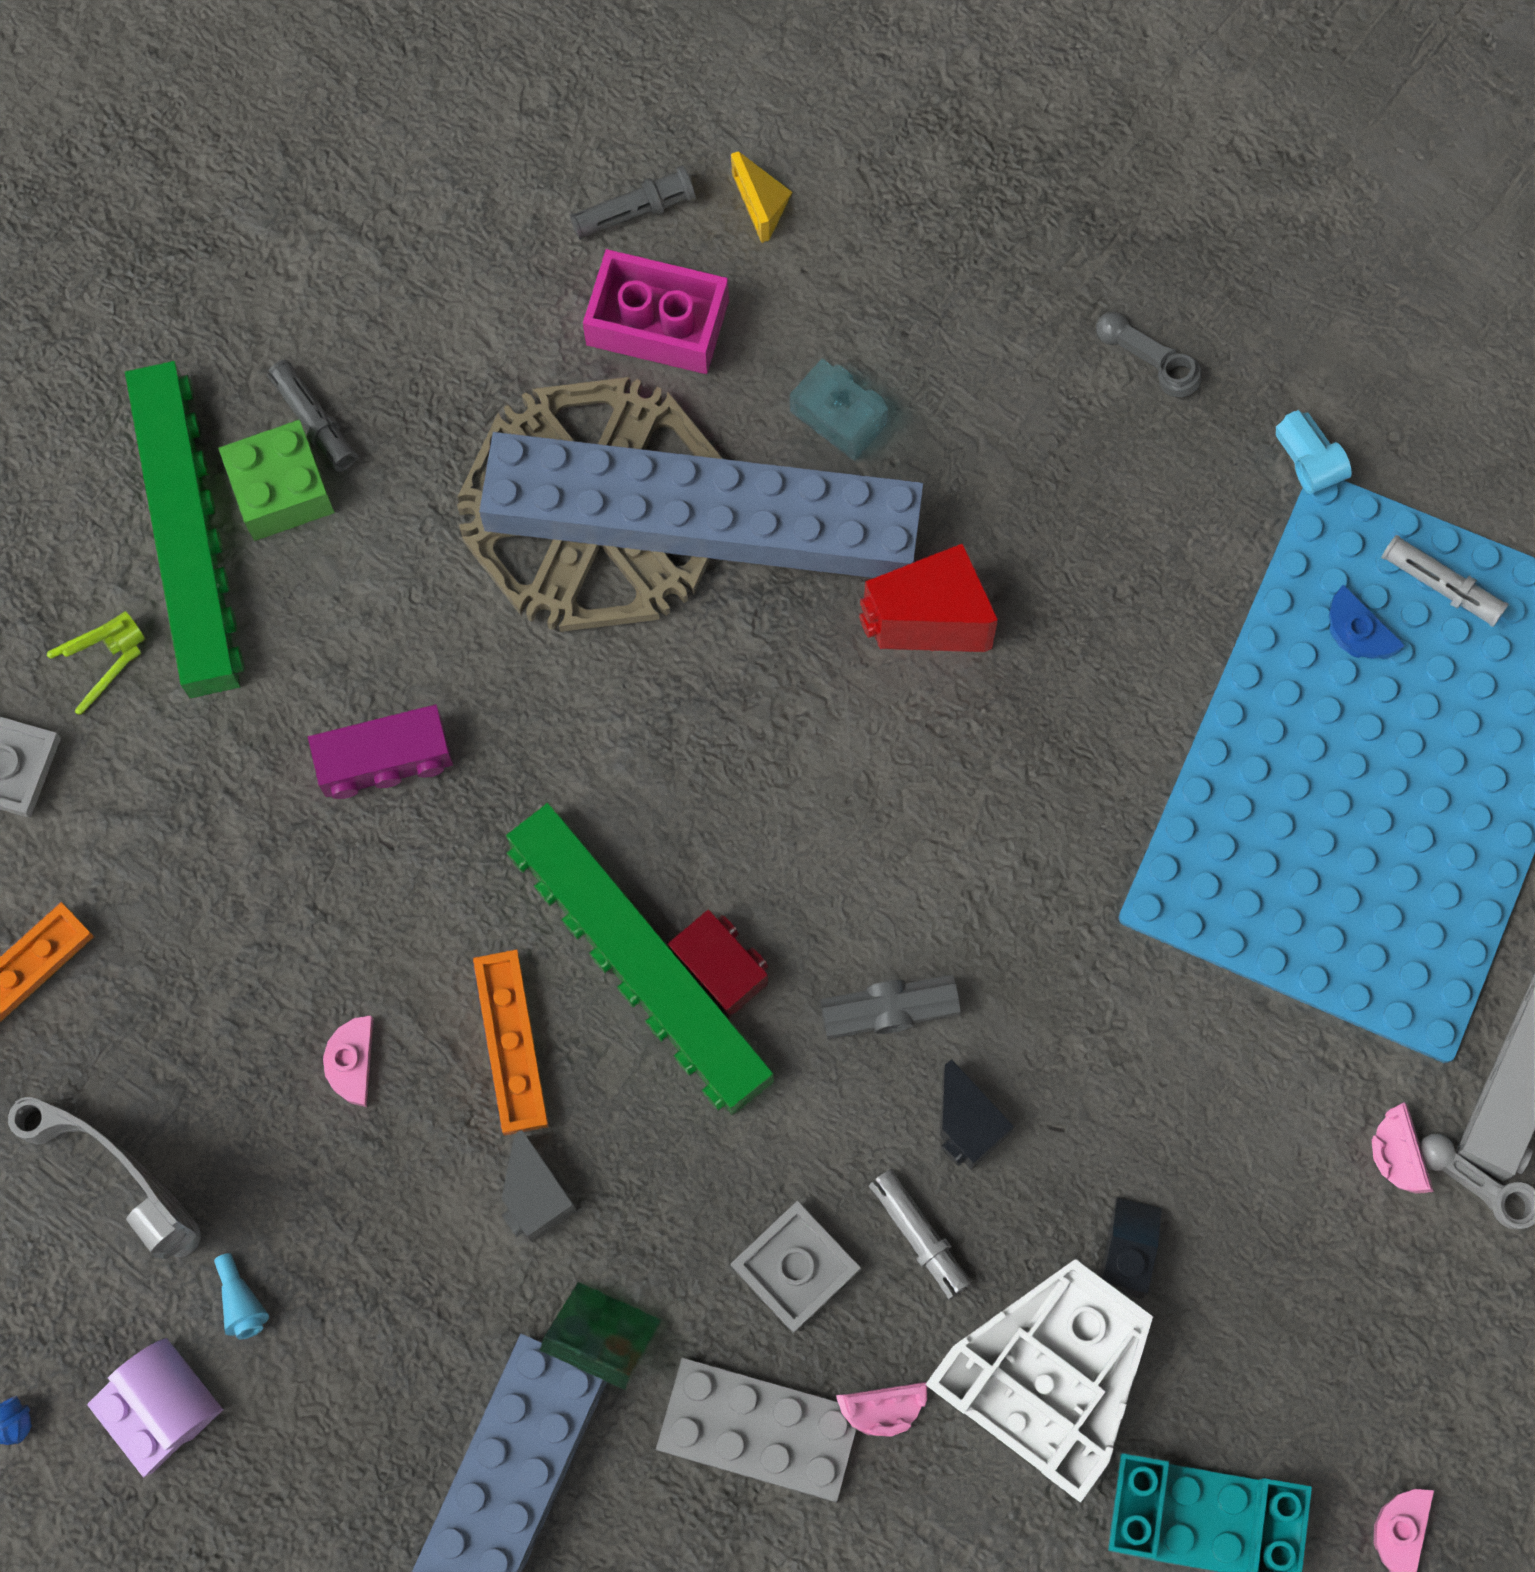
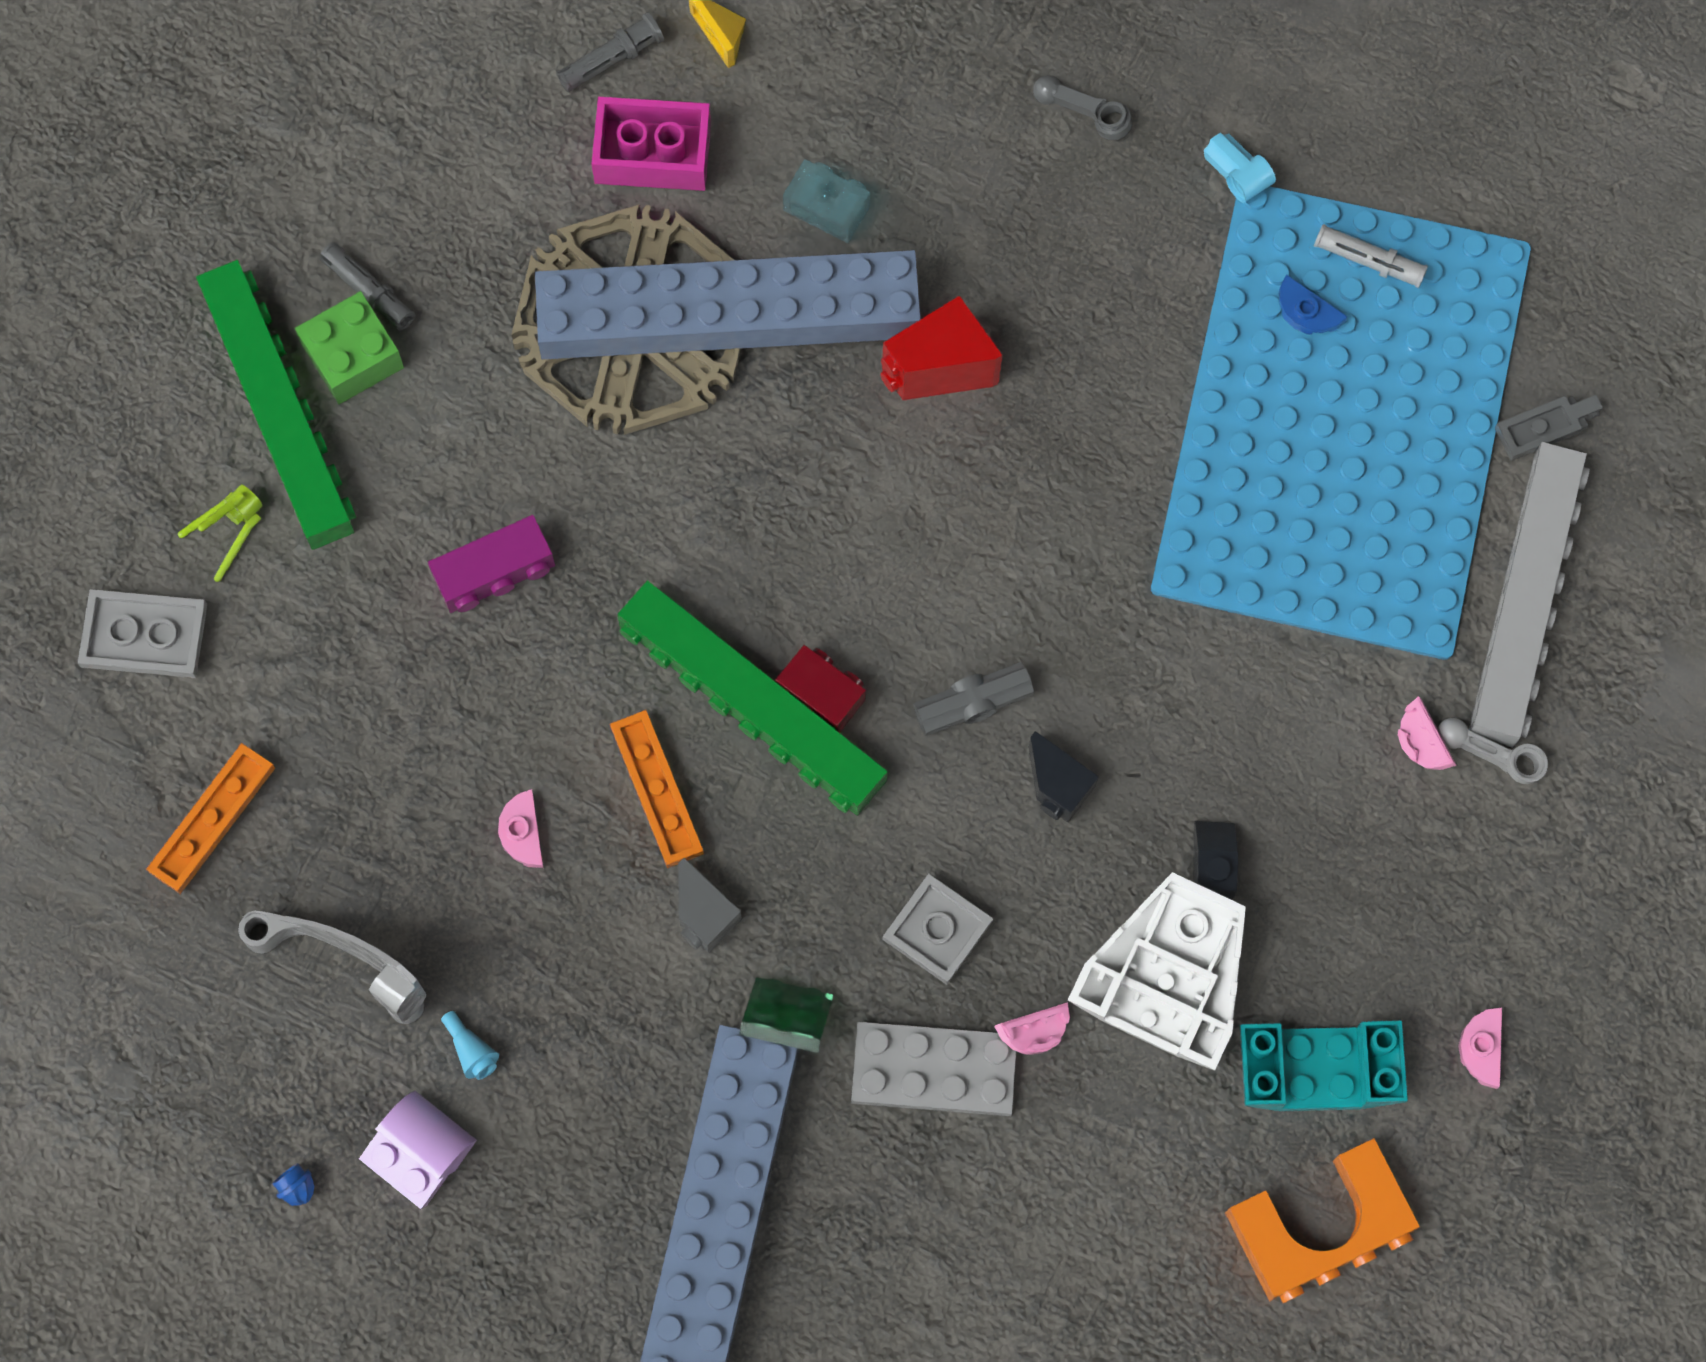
camera: 15 degrees left, 0 degrees up
(925, 1241) = (1037, 882): light grey pin -> none

